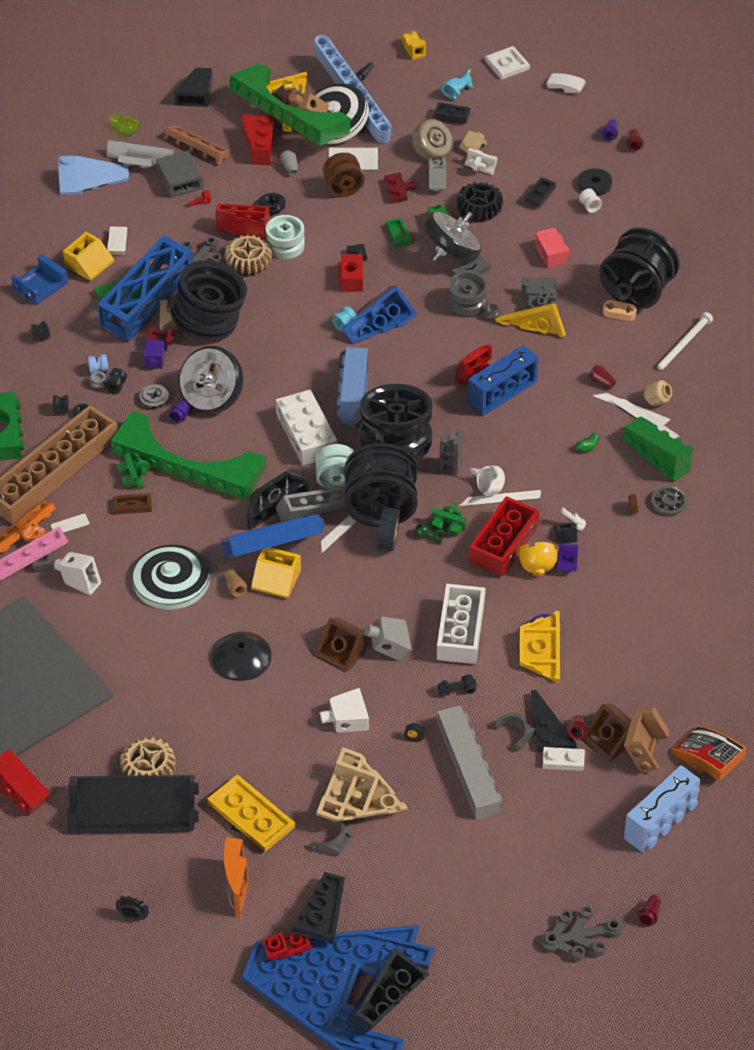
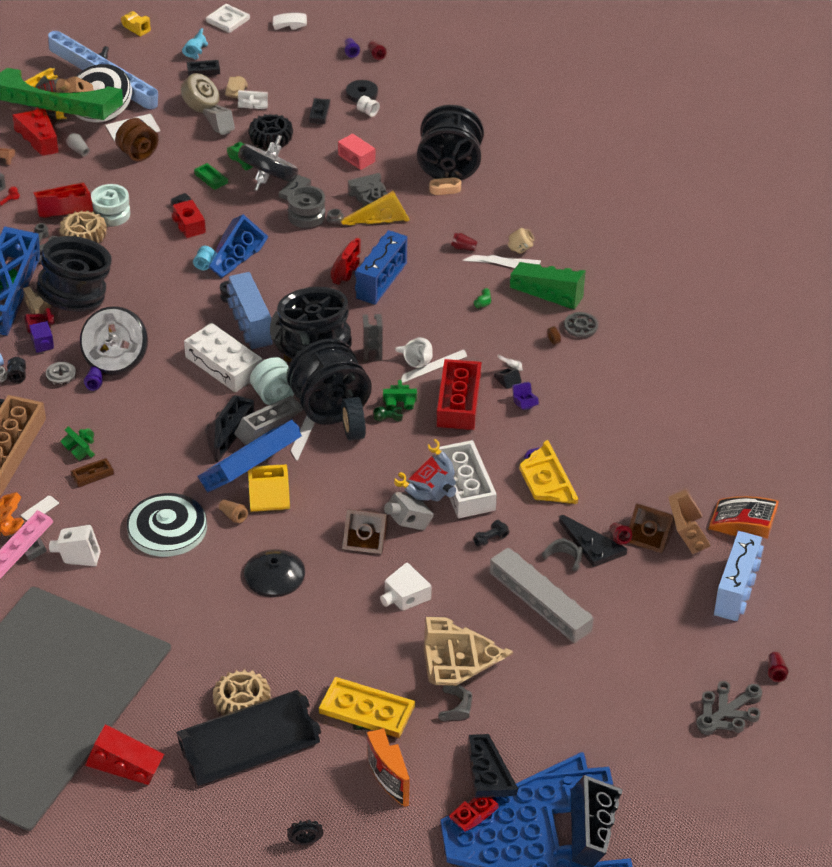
camera: 25 degrees left, 5 degrees down
(231, 476) = (176, 419): green arch -> none
(277, 199) = (80, 178): black gear -> none
(397, 187) = (188, 141): dark red plate -> none
(414, 732) = (477, 586): black tile -> none
(424, 614) = (432, 479): none -> sand blue torso
(538, 558) = (500, 404): yellow cylinder -> none
(563, 758) = (621, 565): white plate -> none
(706, 319) = (523, 172): white bar -> none

